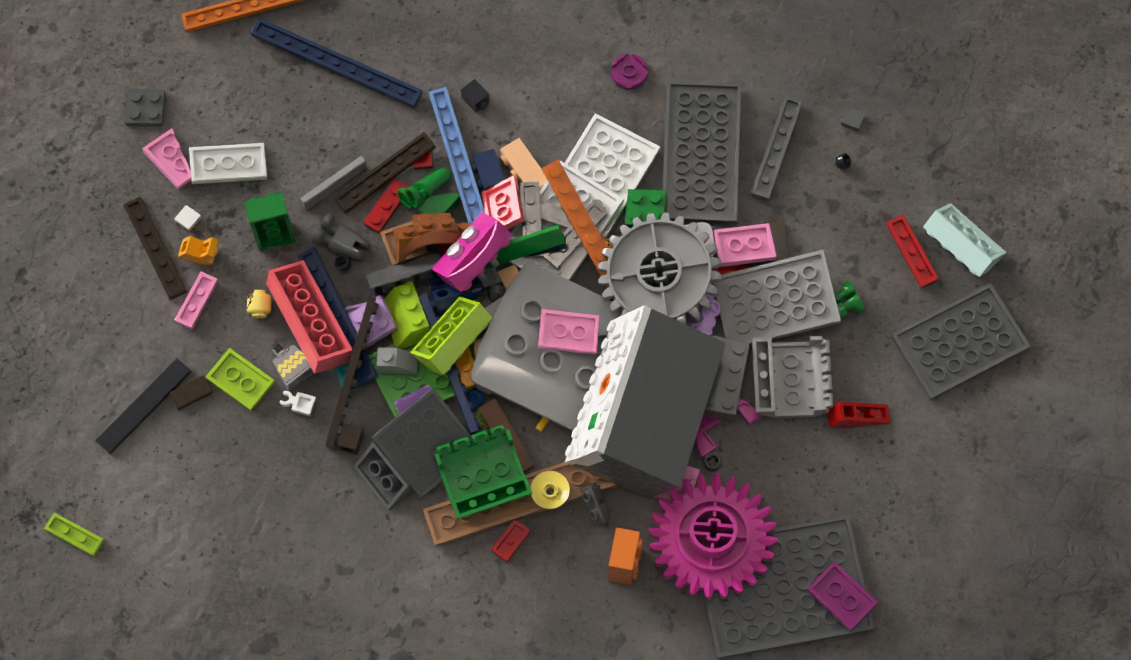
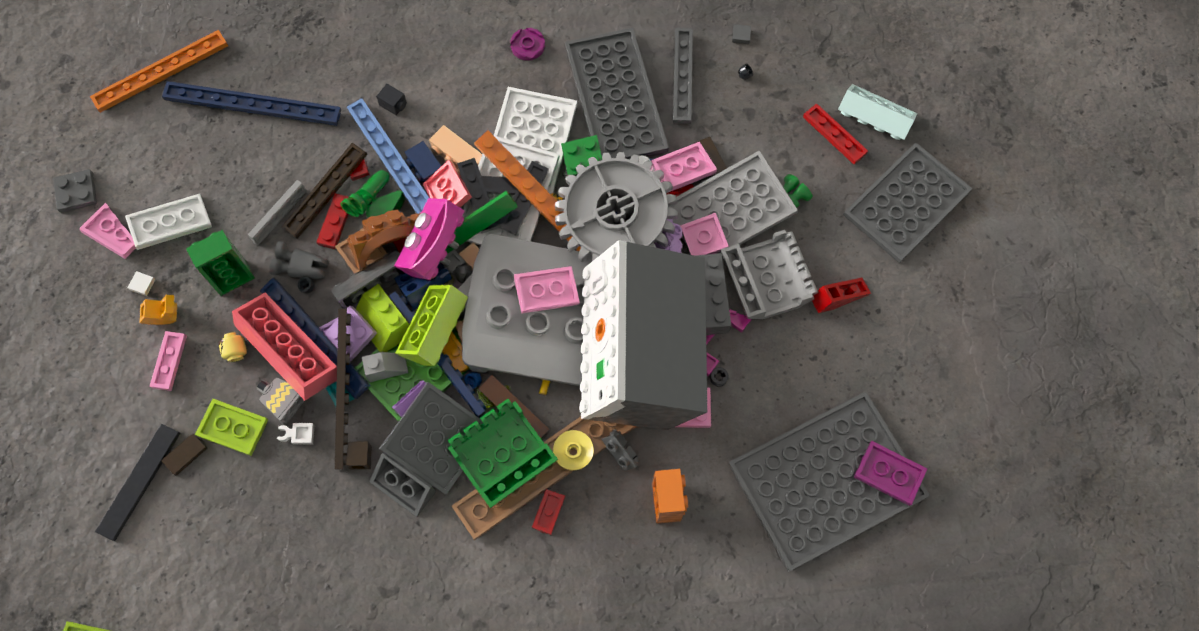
camera: 20 degrees left, 0 degrees up
(155, 248) = (115, 321): dark brown tile -> none
(691, 551) = (761, 429): dark pink gear -> none
(741, 320) = (704, 235): none -> bright pink plate

